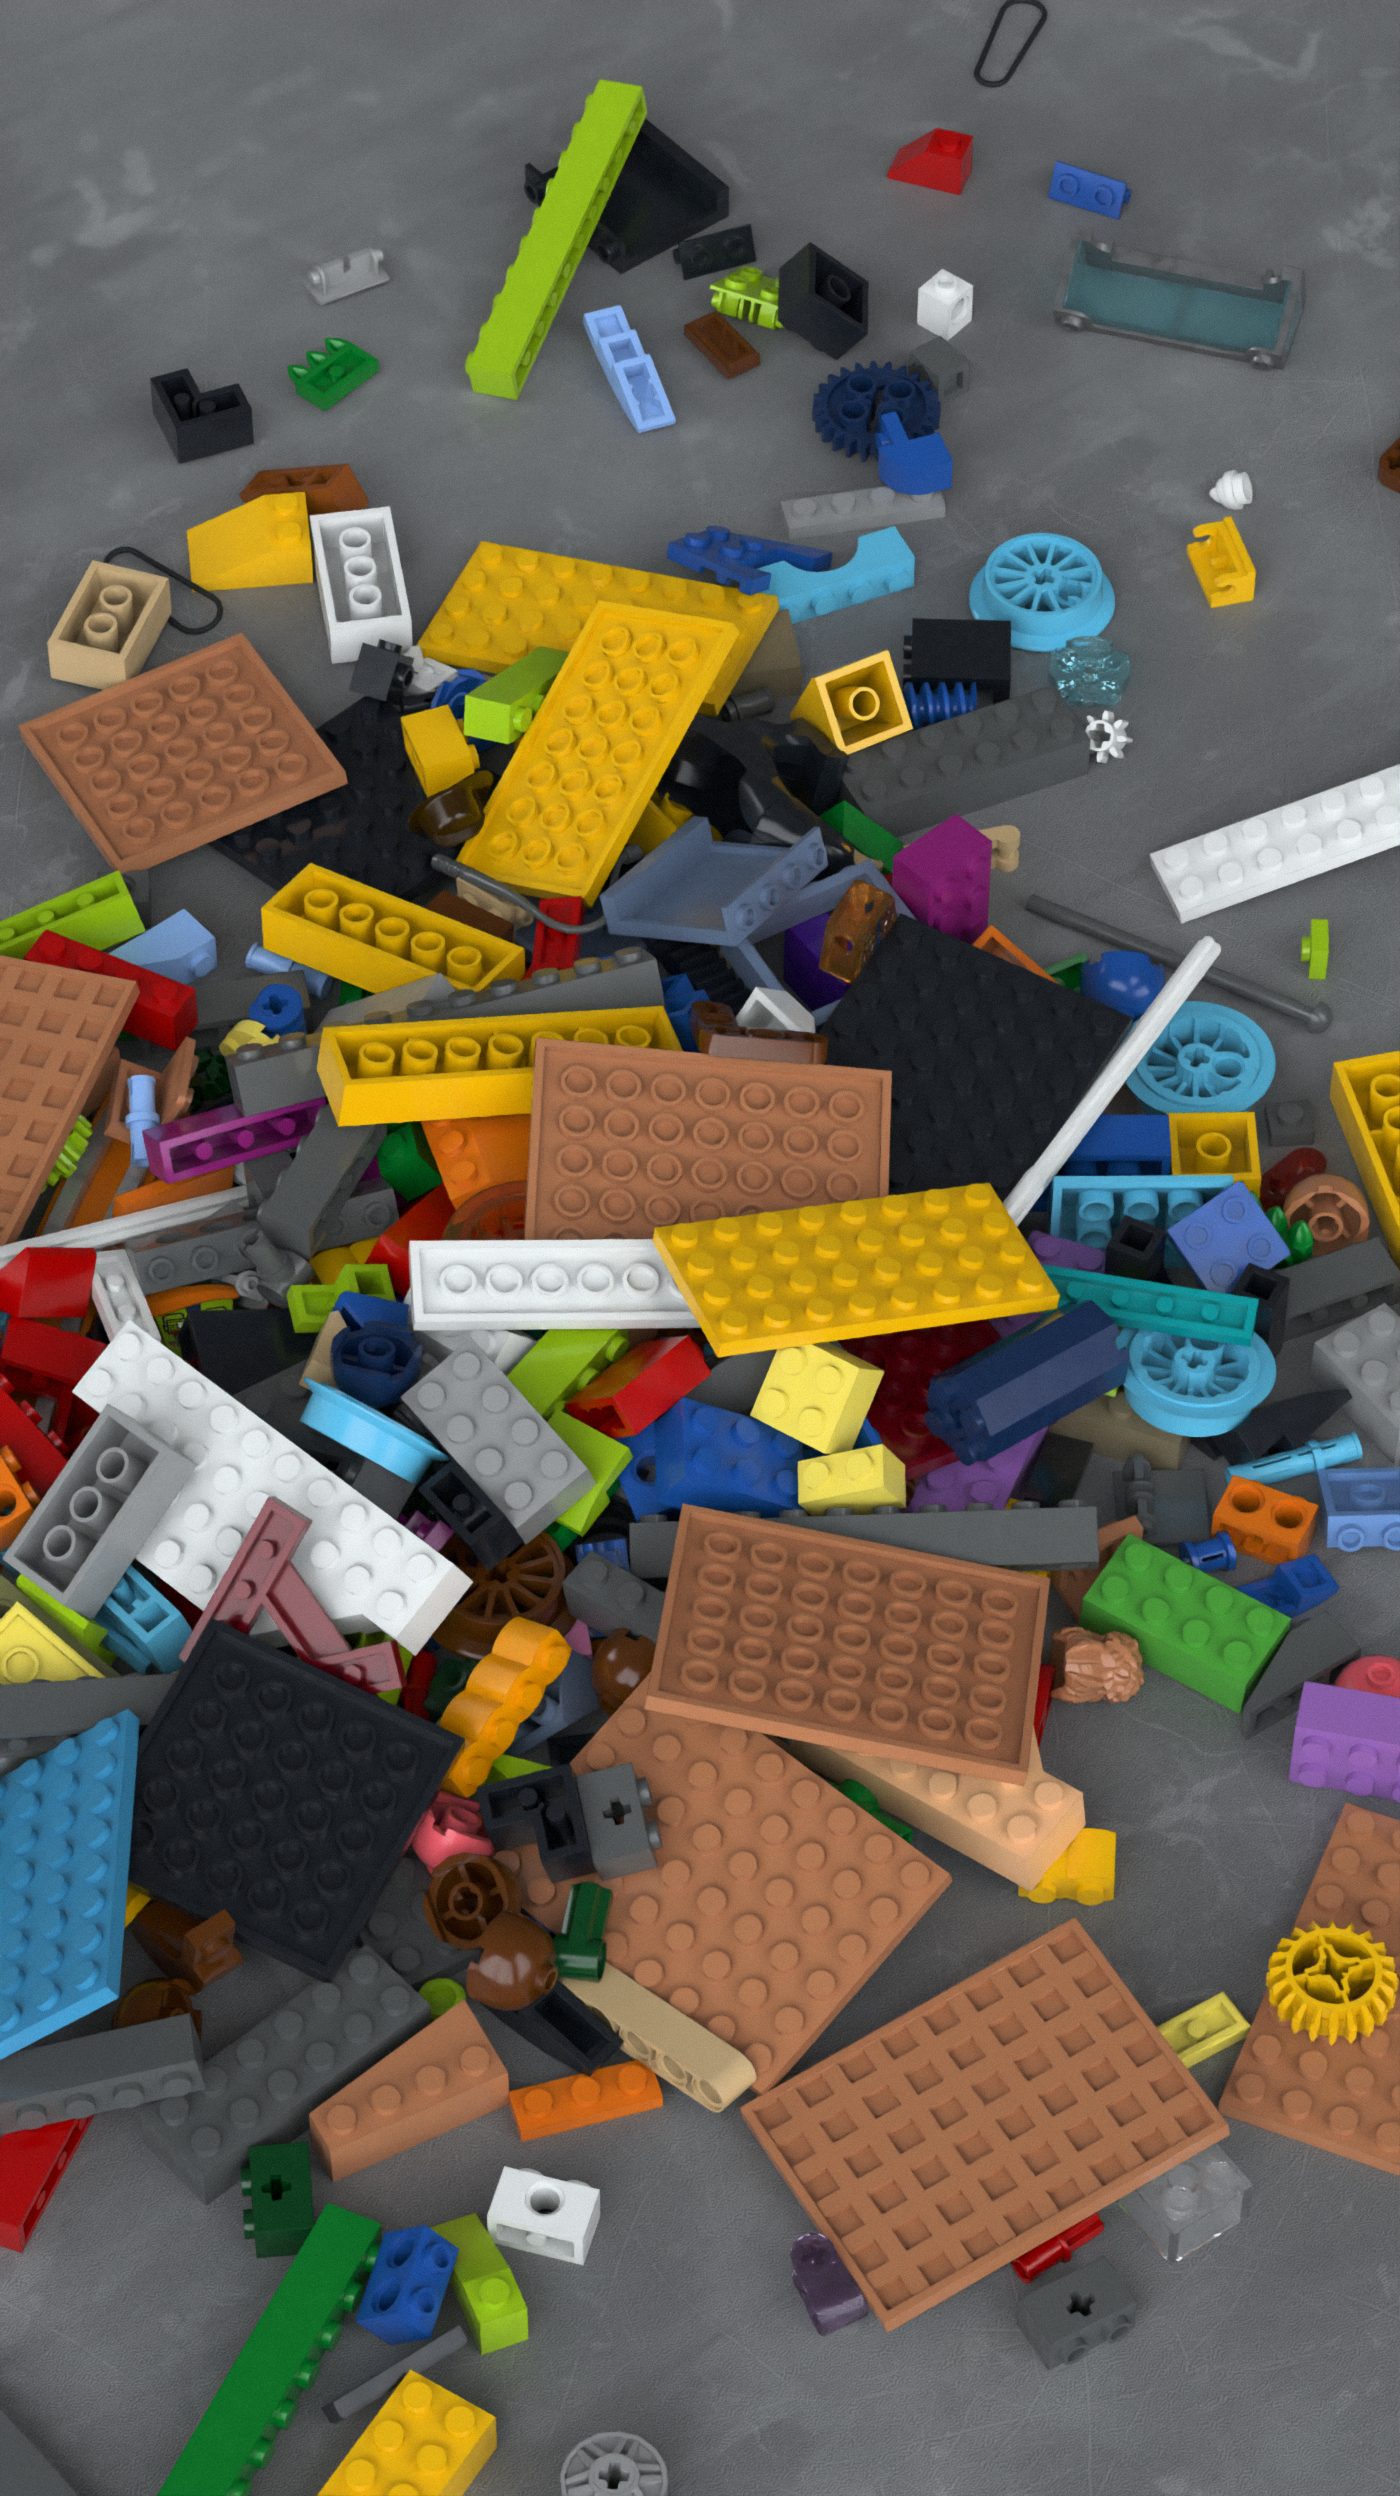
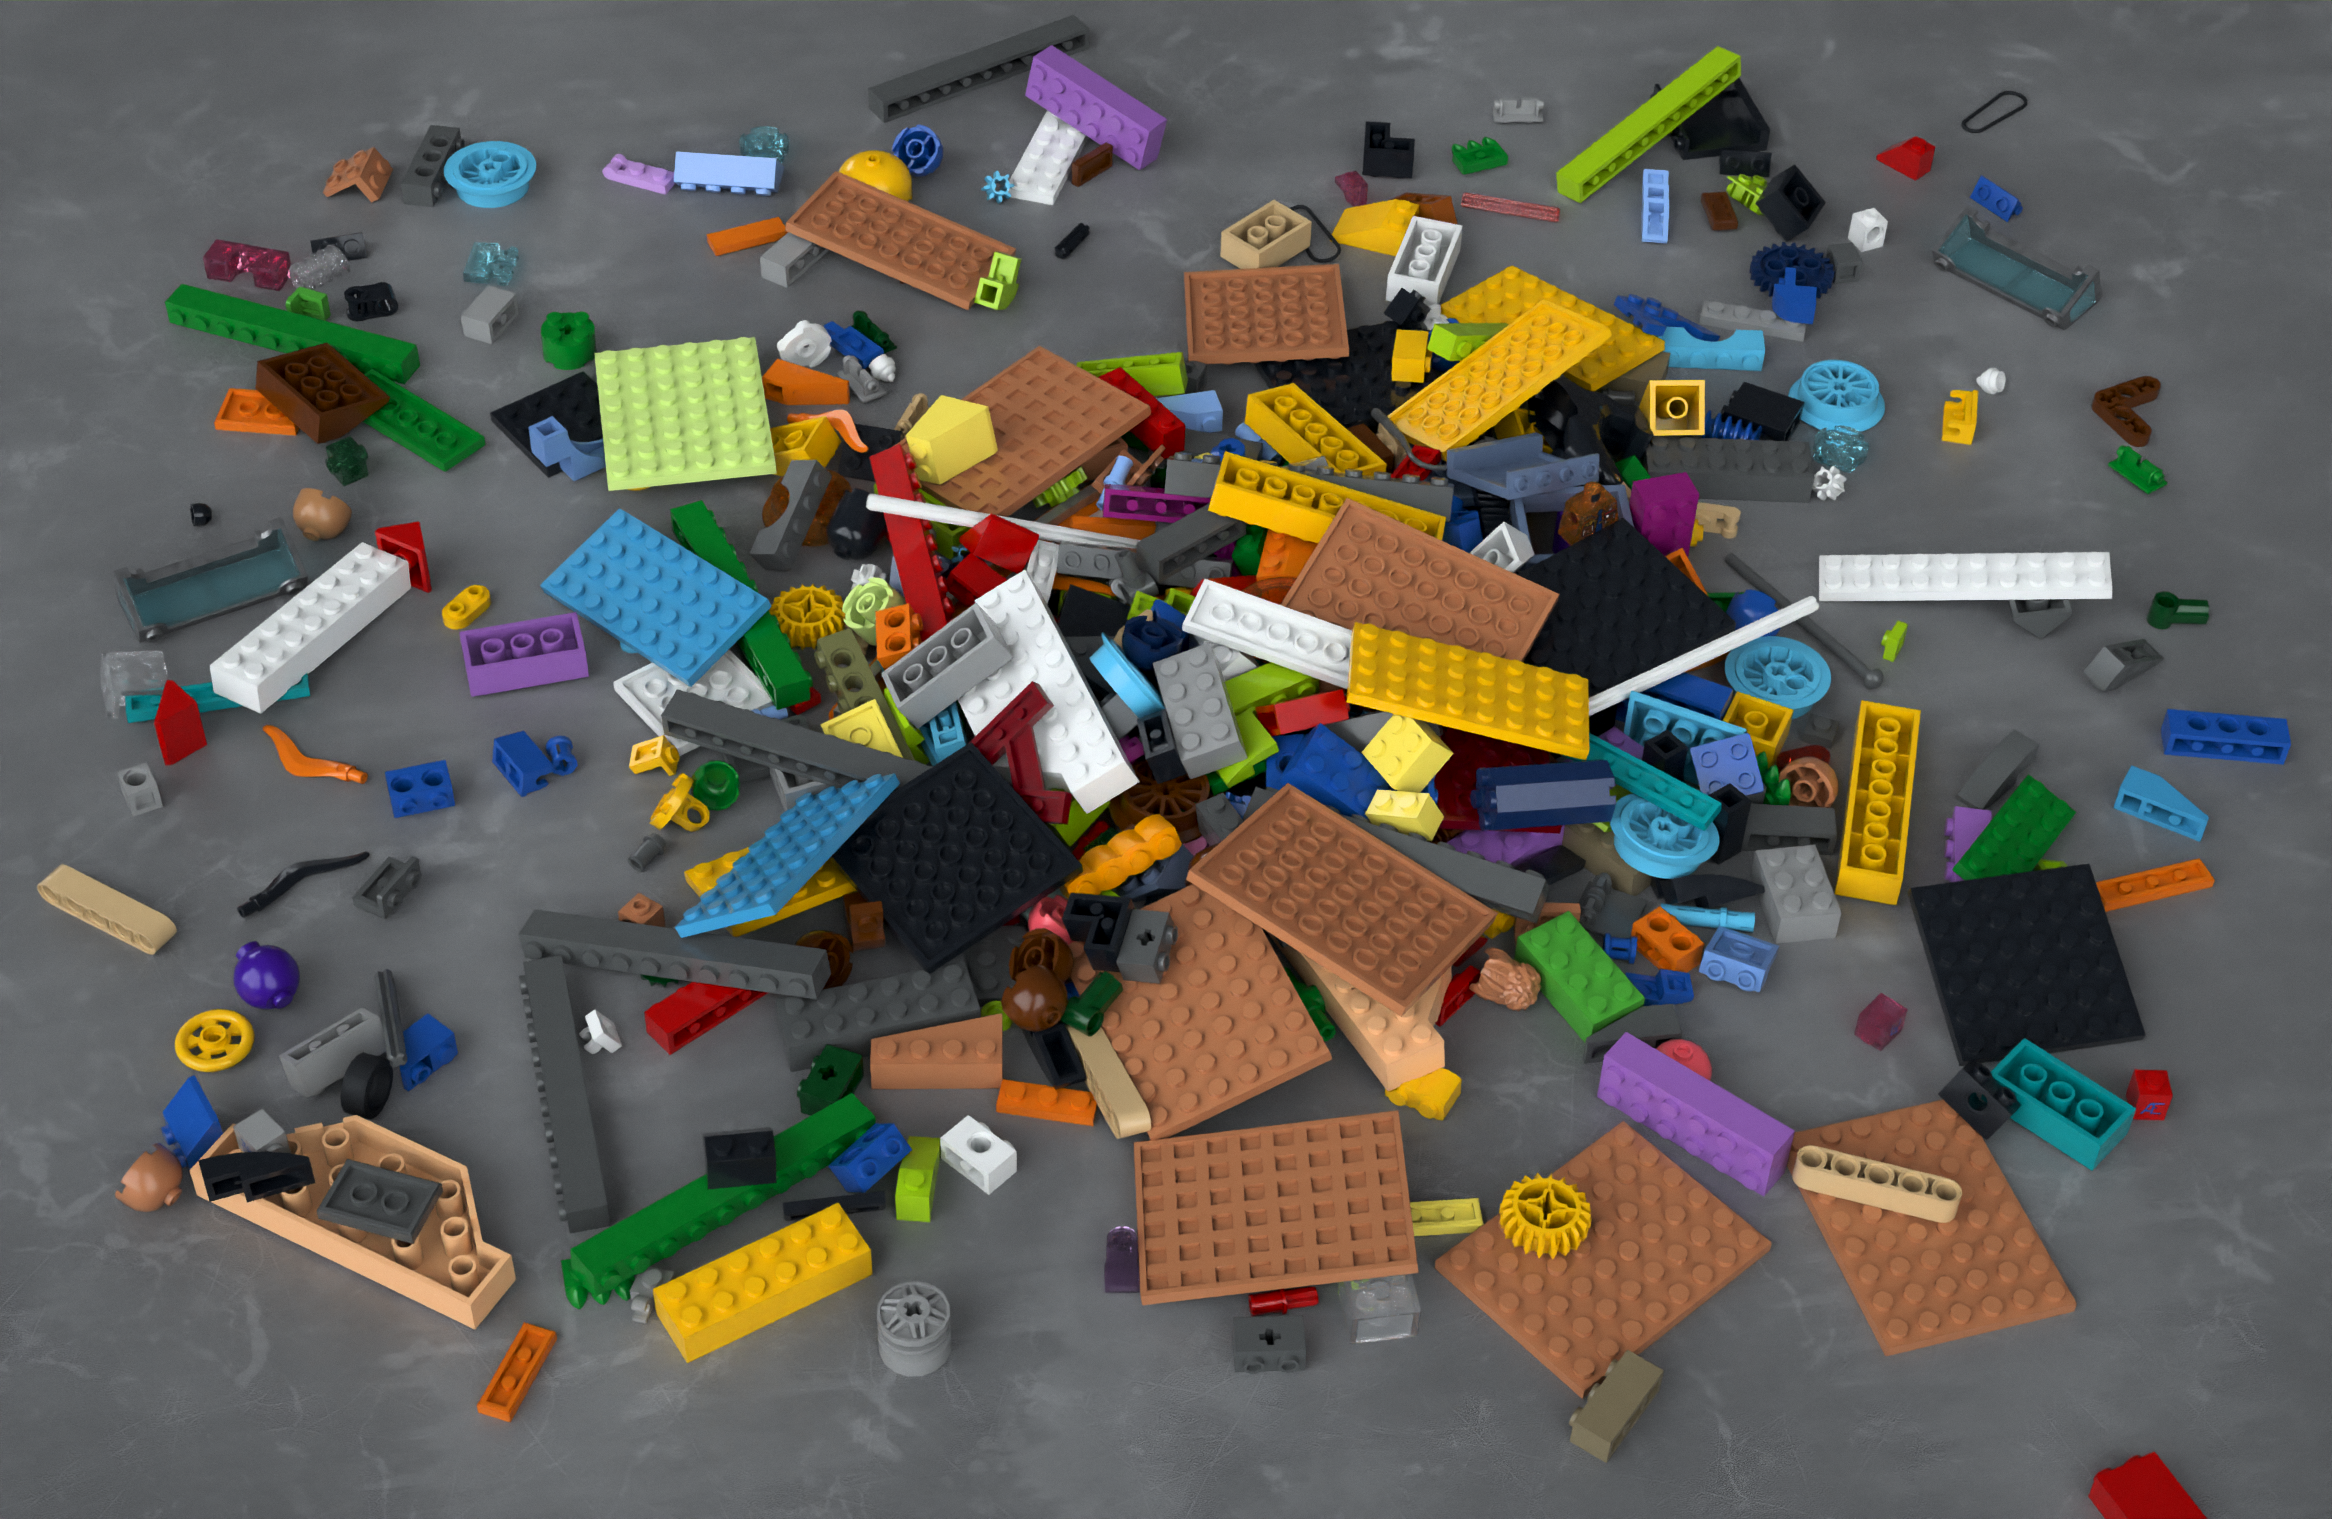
camera: 25 degrees right, 5 degrees down
(189, 495) = (1354, 188): none -> clear pink bracket
(244, 2362) = (740, 1158): none -> black slope
(423, 443) = (1510, 207): none -> clear red axle
(454, 812) = (1396, 385): dark brown piece -> none
(719, 1035) = (1468, 538): reddish brown beam -> none

